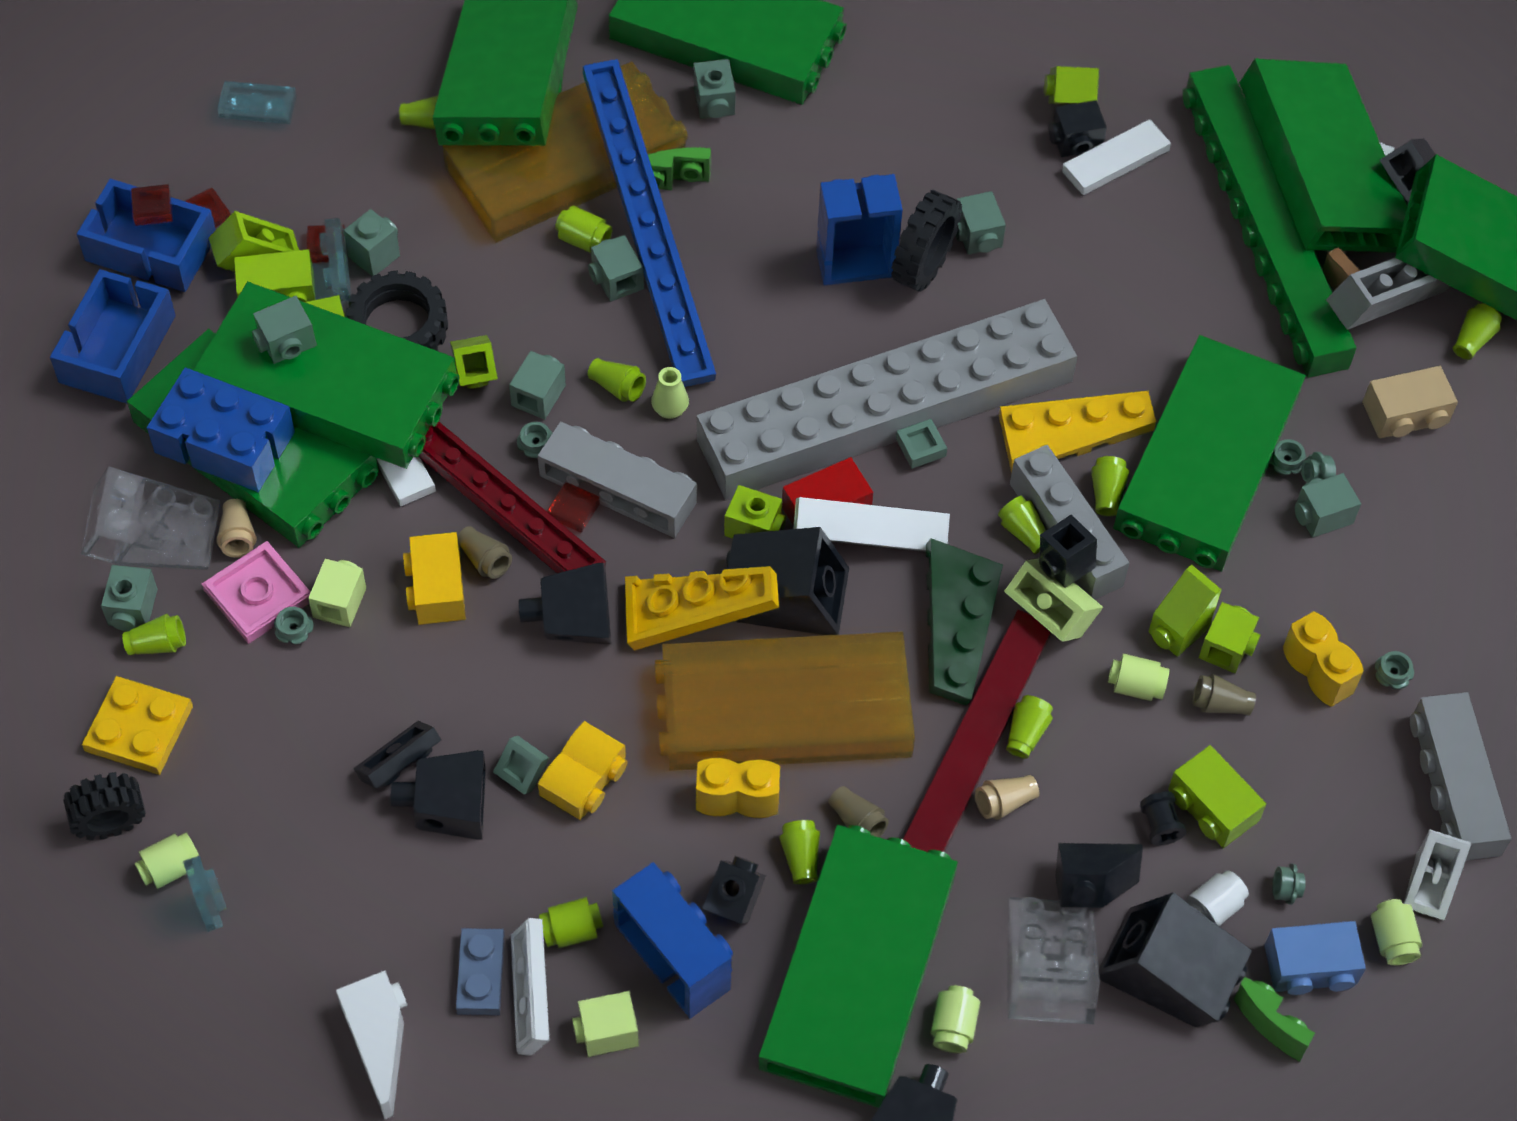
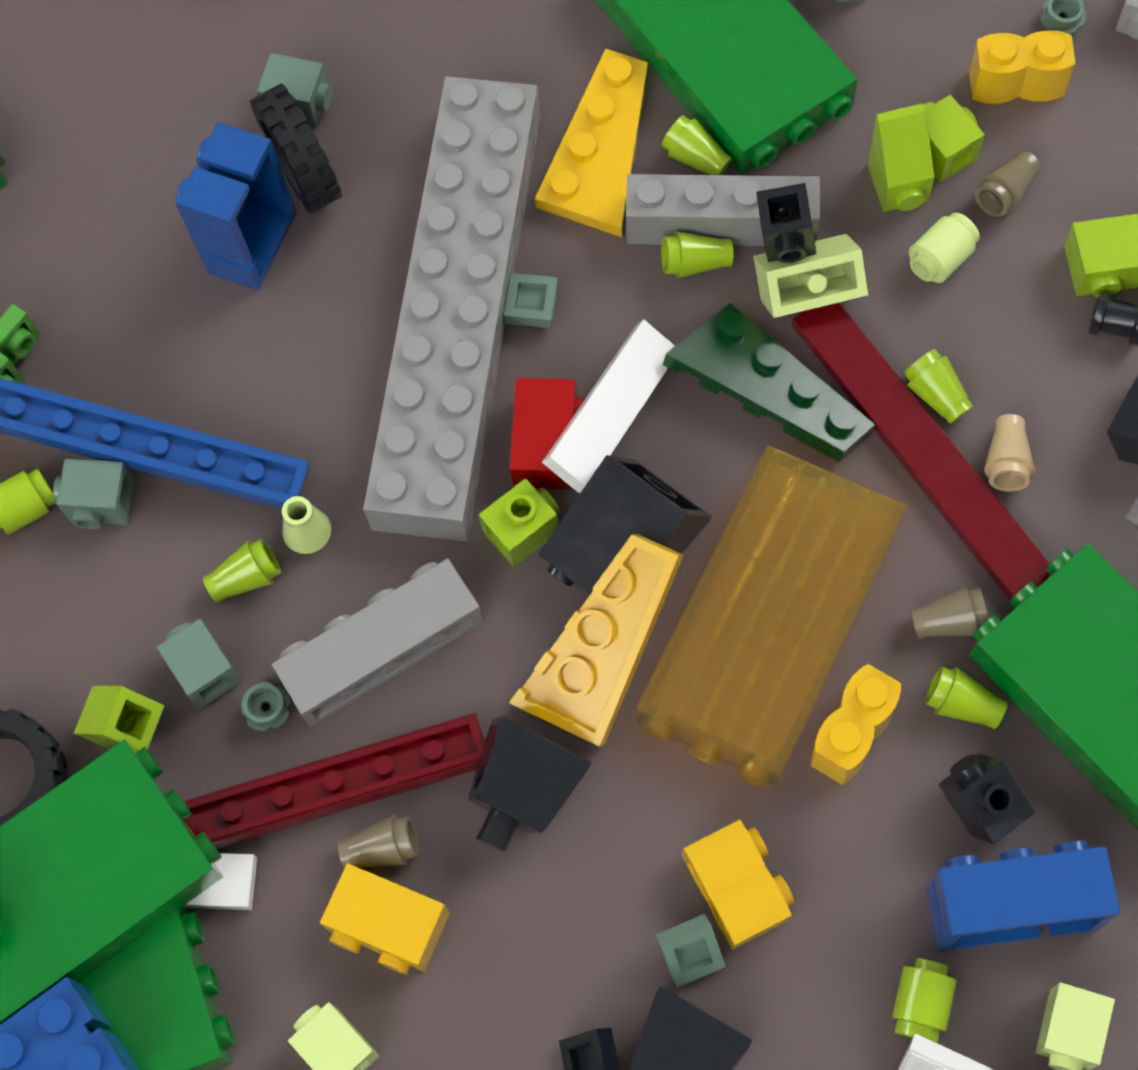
camera: 50 degrees left, 10 degrees up
(574, 506) = (379, 711): clear red tile -> none

